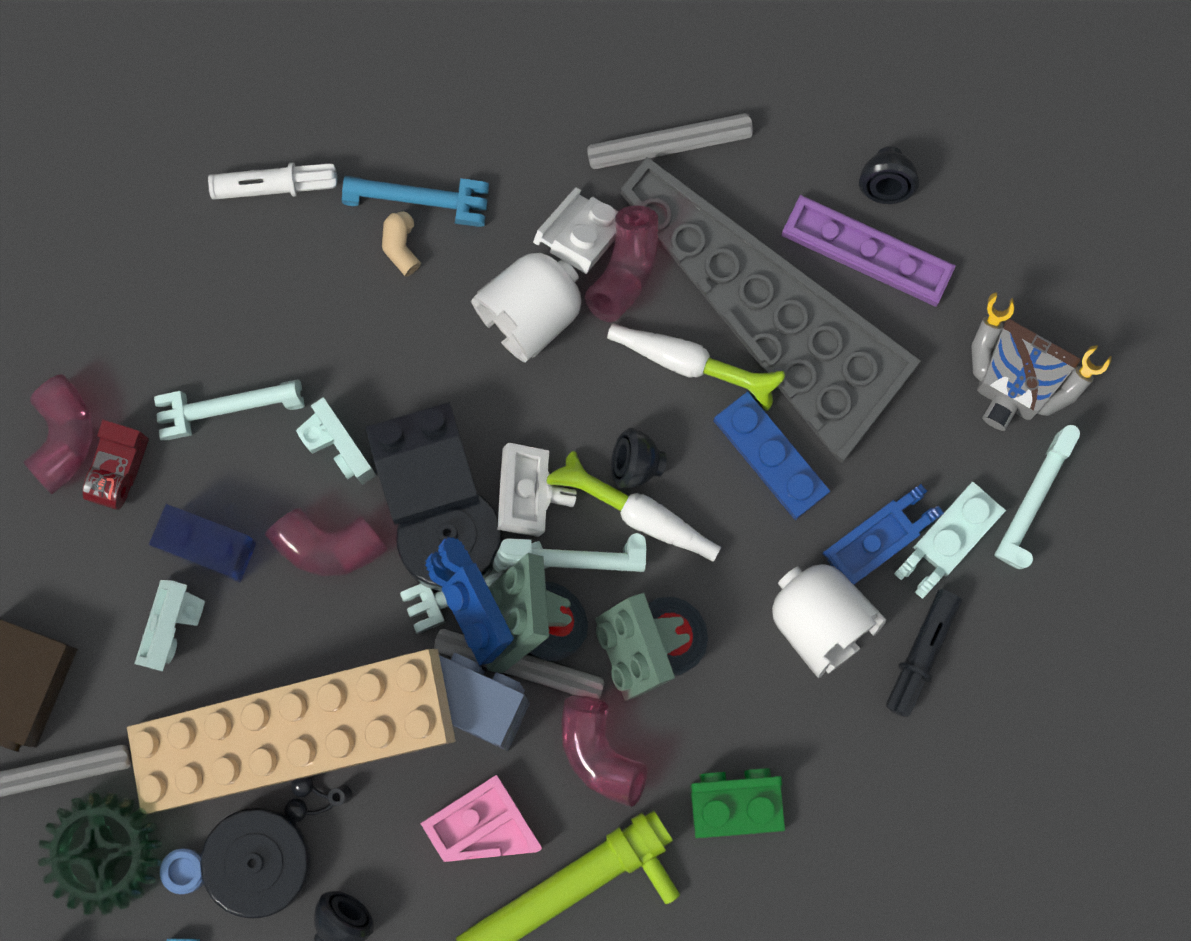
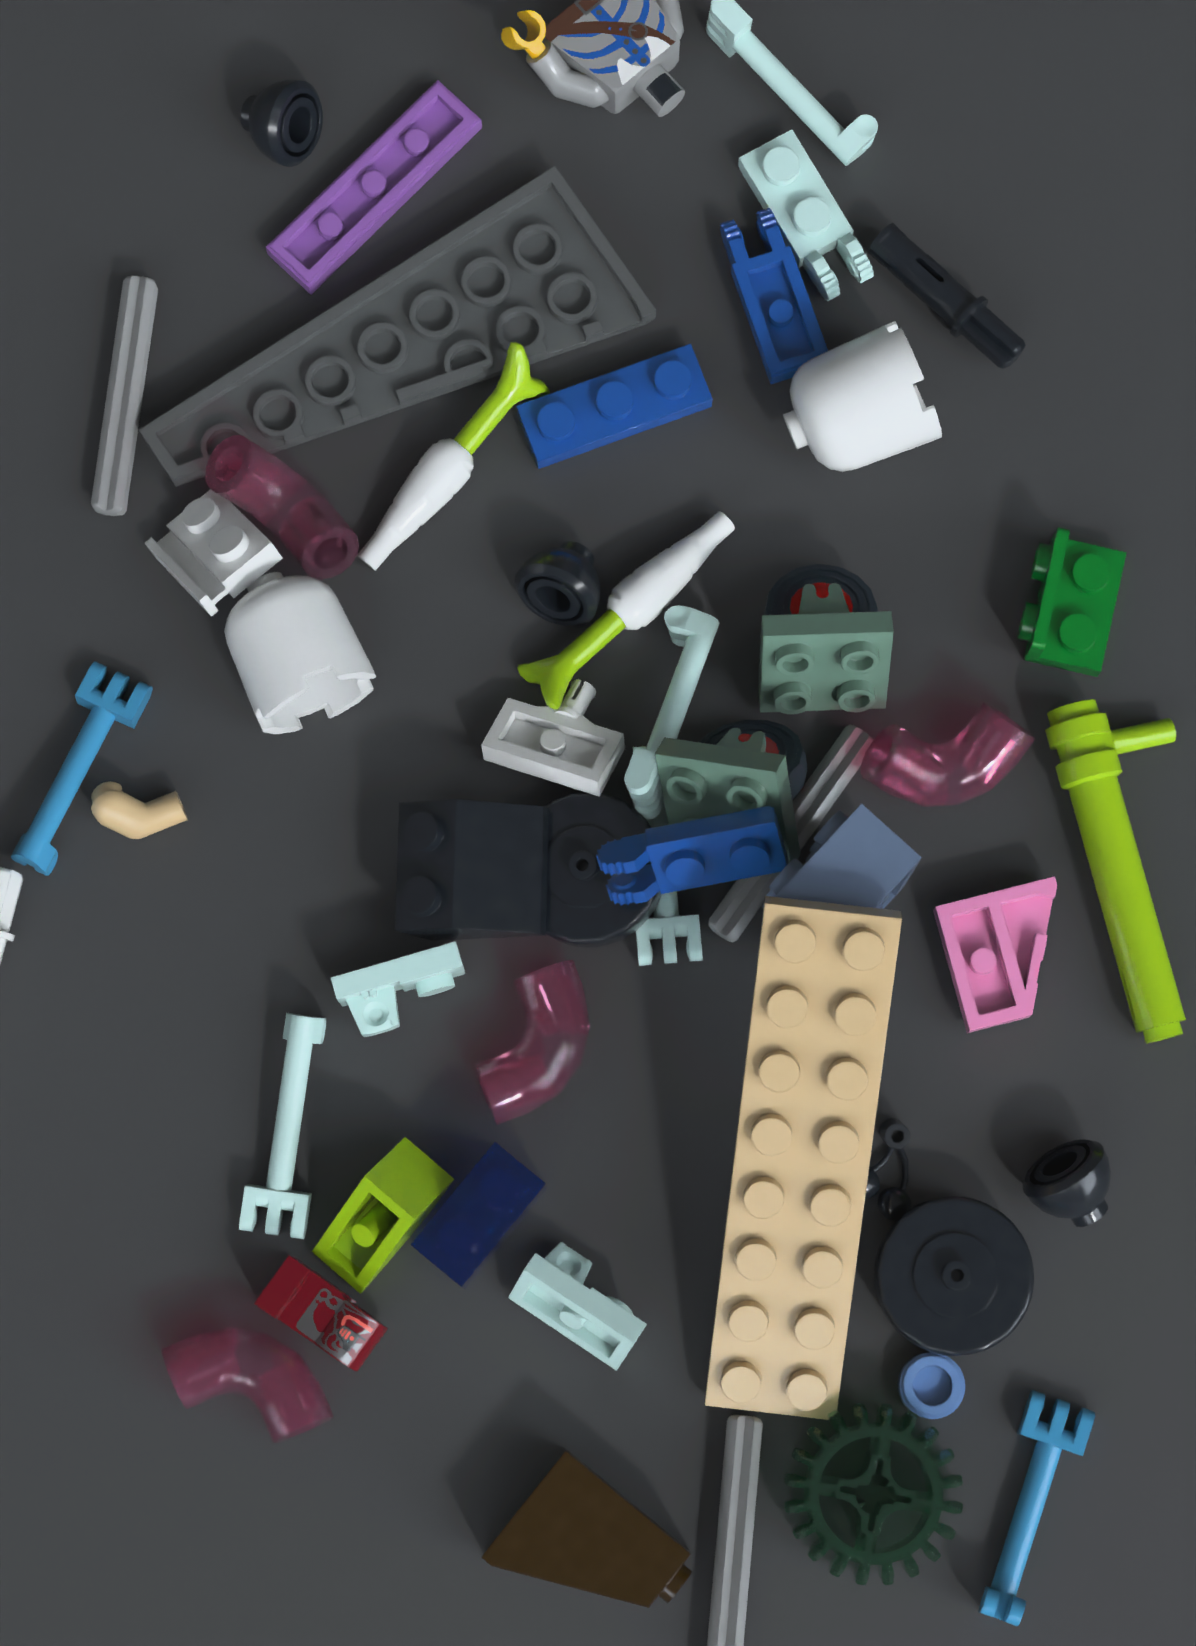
camera: 75 degrees left, 0 degrees up
(188, 482) = (382, 1214): none -> lime slope

